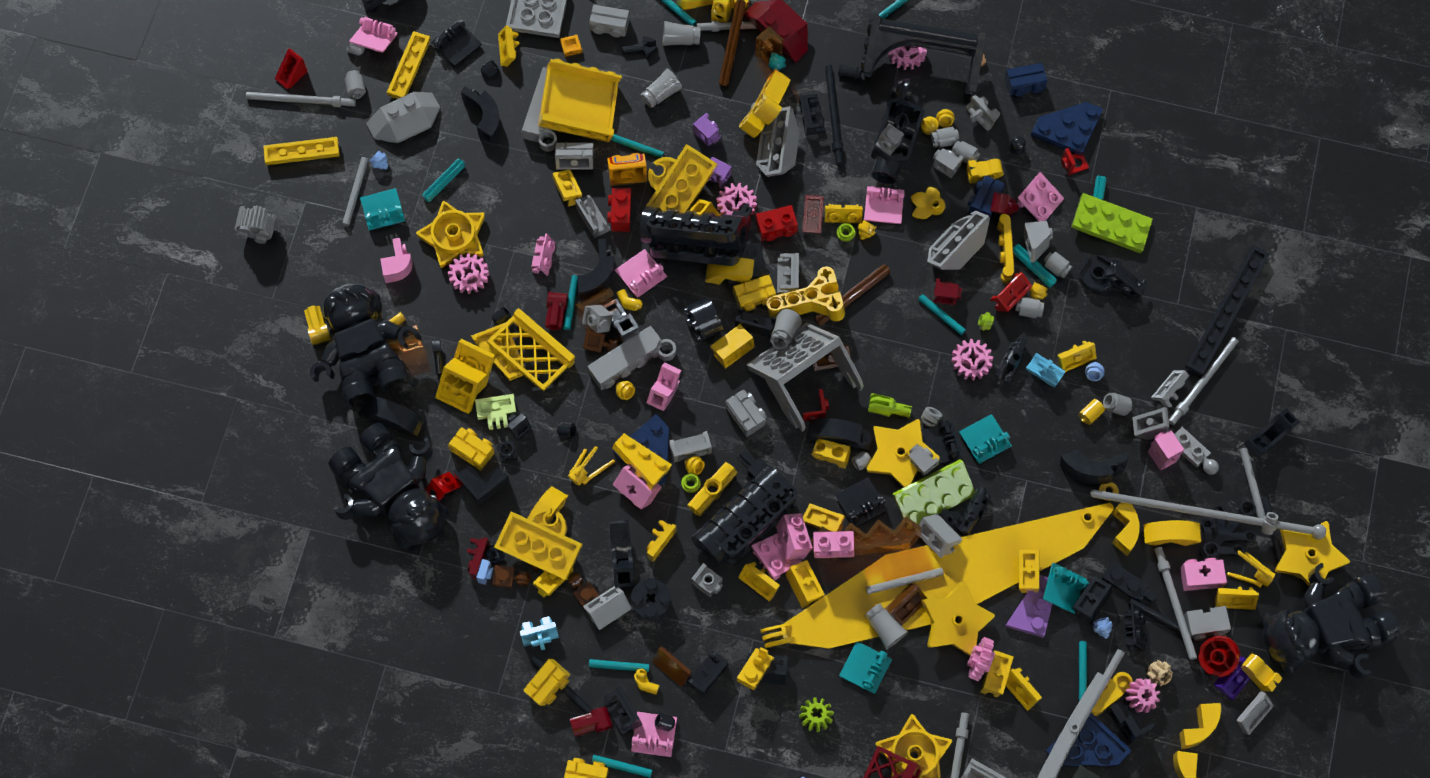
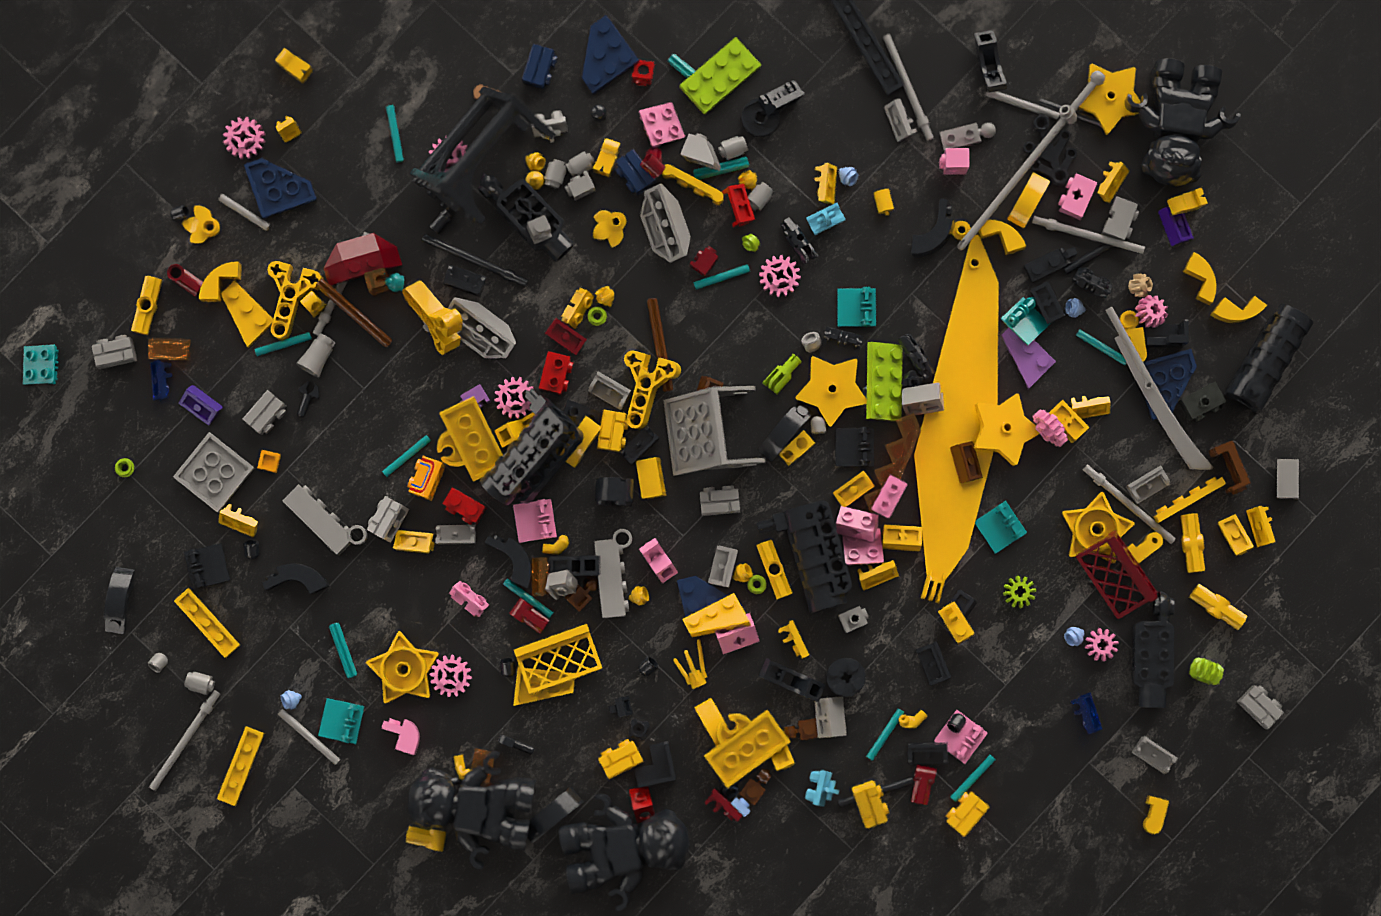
camera: 55 degrees left, 15 degrees up
(255, 224) = (296, 844): light grey brick -> none
(291, 69) = (151, 735): red slope -> none
(374, 35) = (159, 640): bright pink hinge -> none
(404, 117) = (261, 654): light grey wedge -> none
(465, 376) = (551, 730): yellow bracket -> none
(496, 409) = (595, 718): yellowish green hinge -> none
(579, 100) = (335, 486): yellow panel -> none
(661, 88) = (363, 403): light grey plant -> none
(671, 666) = (911, 690): reddish brown slope -> none
(706, 130) = (428, 384): medium lavender brick -> none
(785, 328) = (664, 425): light grey plant -> none
(823, 403) = (750, 429): red bracket -> none
(884, 205) = (589, 266): bright pink hinge -> none
(885, 626) = (977, 491): light grey plant -> none
(904, 581) = (946, 451): light grey bar -> none
(922, 459) = (852, 375): light grey brick -> none
(1029, 570) = (997, 342): yellow hinge -> none
(1117, 403) = (890, 175): light grey brick -> none
(1151, 423) = (926, 159): light grey slope -> none
(1219, 655) = (1155, 227): red cylinder -> none
(1255, 713) = (1215, 227): light grey plate -> none
(1263, 574) = (1104, 146): yellow plant -> none

